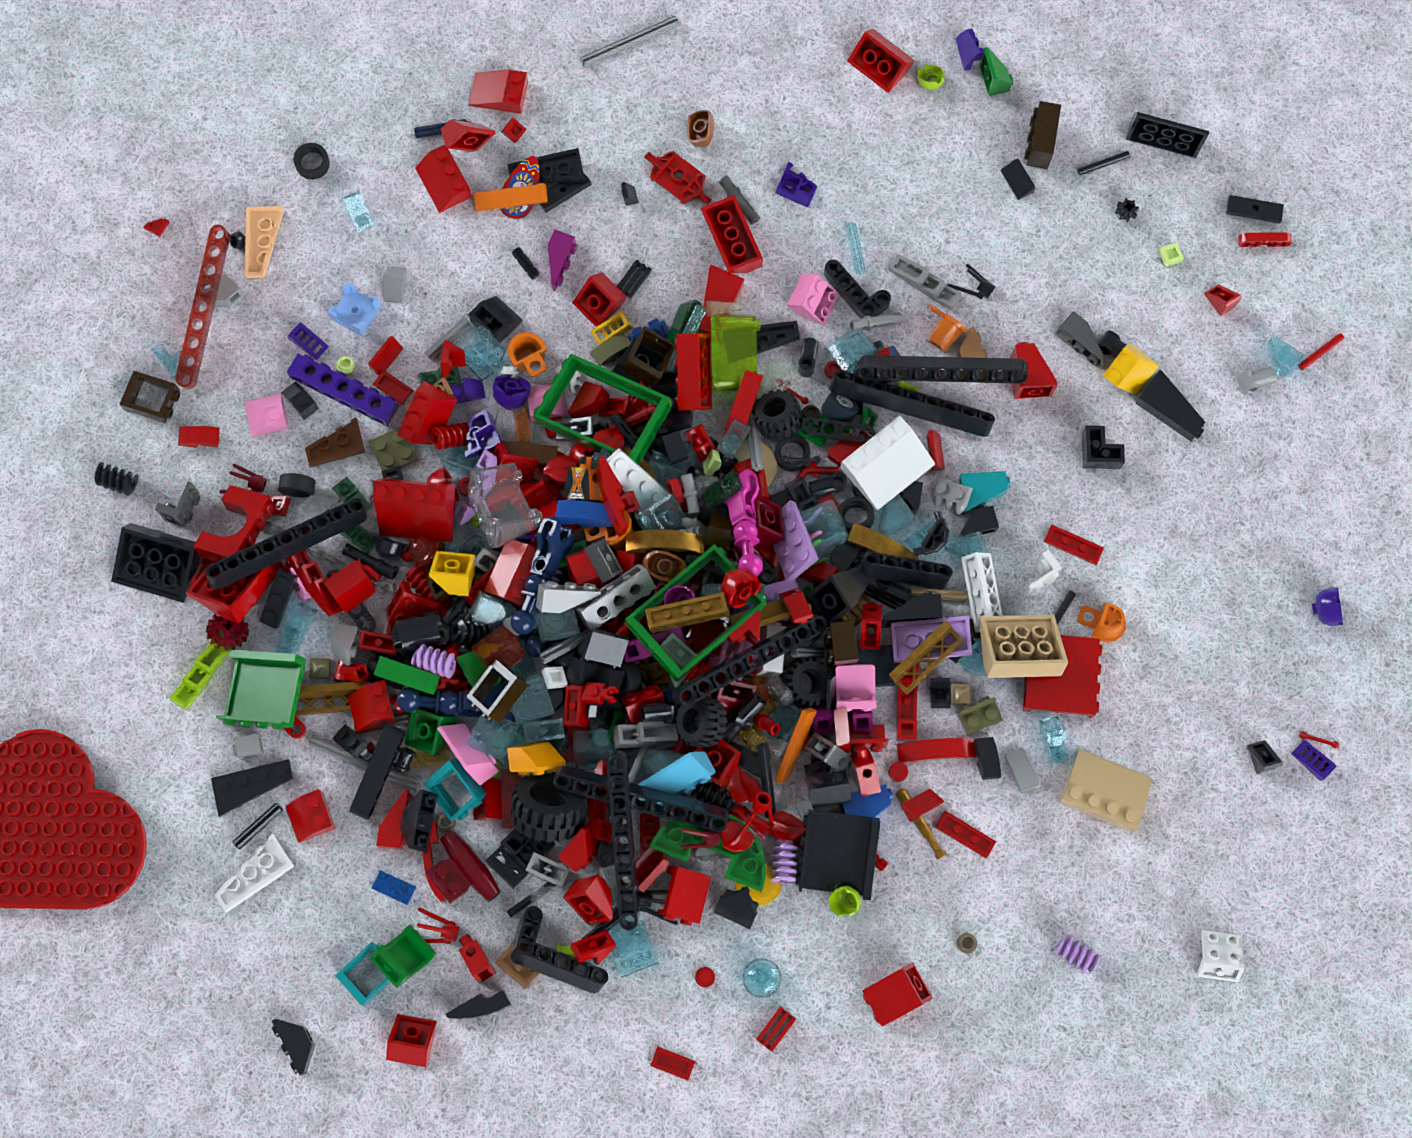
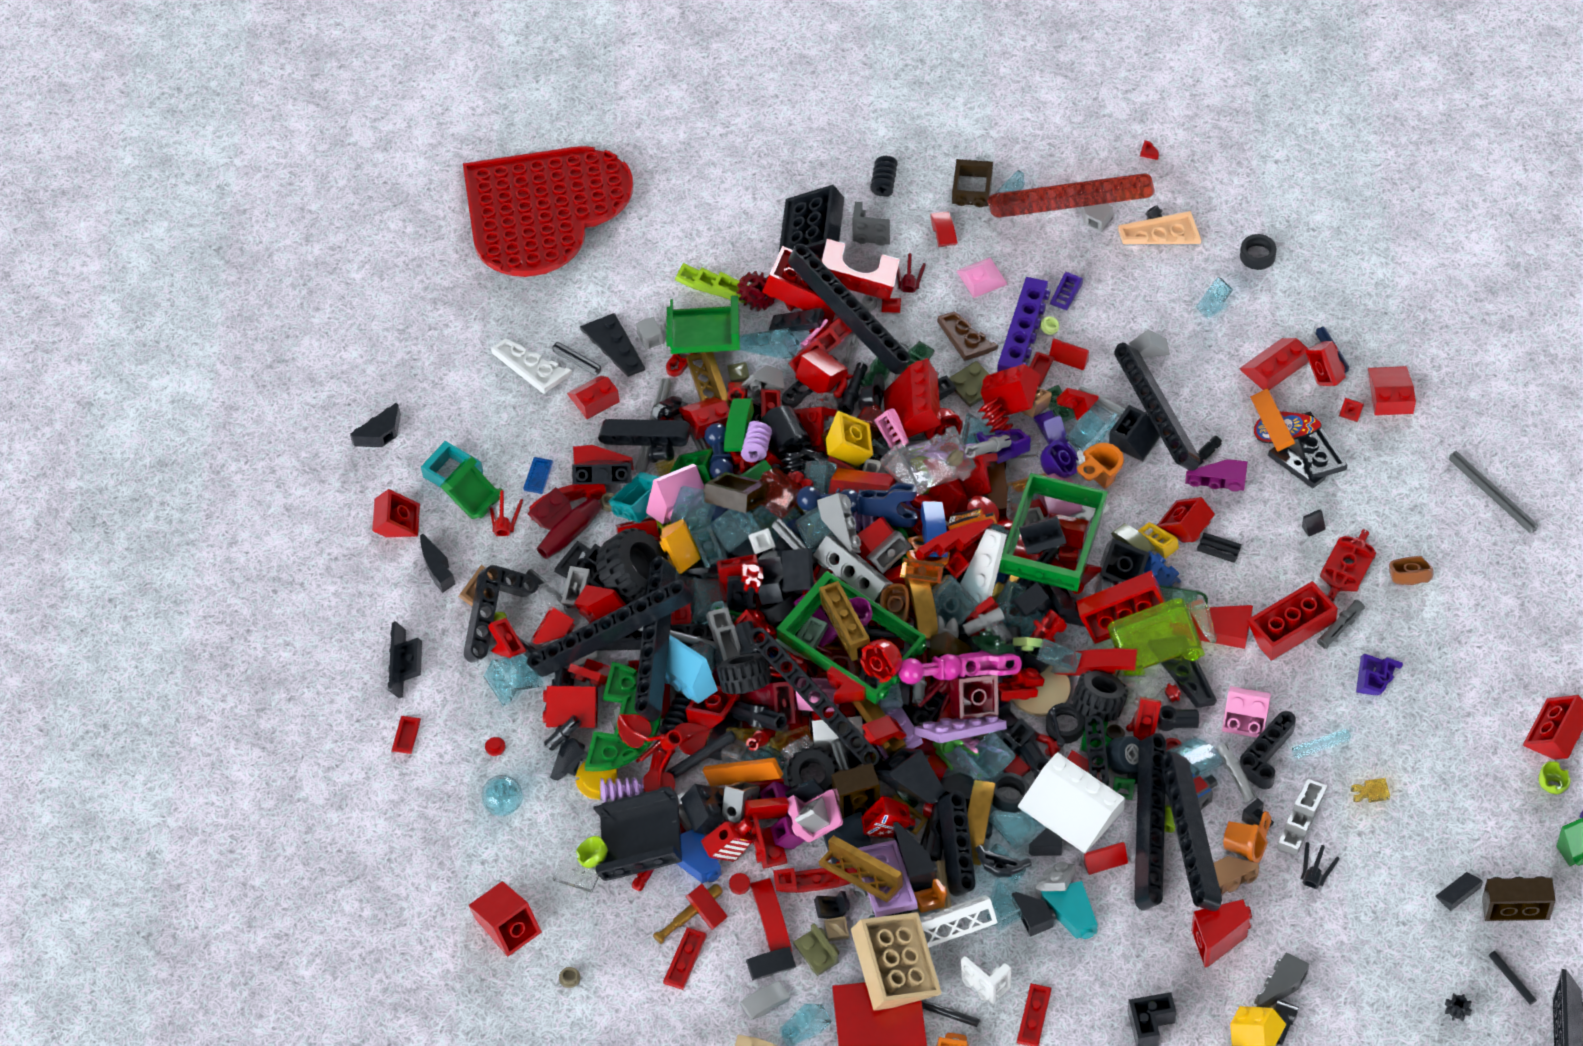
camera: 85 degrees right, 20 degrees down
(296, 485) = (912, 310): black tyre -> none
(300, 400) = (1001, 297): black slope -> none
(355, 310) = (1109, 321): light blue panel -> none
(435, 531) = (884, 427): none -> bright pink slope
(467, 297) = (1157, 407): none -> black beam
(479, 964) = (478, 549): red torso -> none
(485, 629) = (799, 478): none -> red piece
(491, 442) = (993, 445): none -> light grey pin
(502, 478) = (955, 457): none -> dark tan plate
(587, 1053) = (404, 659): none -> black bracket
(616, 419) = (1042, 535): none -> black bracket
(639, 368) = (1111, 548): dark brown window -> none
(639, 533) = (922, 570): none -> clear orange slope
(710, 837) = (627, 706): dark red plant -> none
(710, 908) = (562, 733): none -> black pin
(754, 448) = (1054, 683): light grey axle -> none
(780, 354) = (1172, 692): none -> red plate
(786, 1015) = (438, 811): red tile -> none
(805, 383) = (1146, 717): none -> red slope
(857, 688) = (813, 816): none -> light grey slope
(911, 218) = (1373, 789): none -> clear yellow plate
(919, 318) = (1253, 813): none -> black panel
(951, 604) = (931, 898): none -> orange bracket

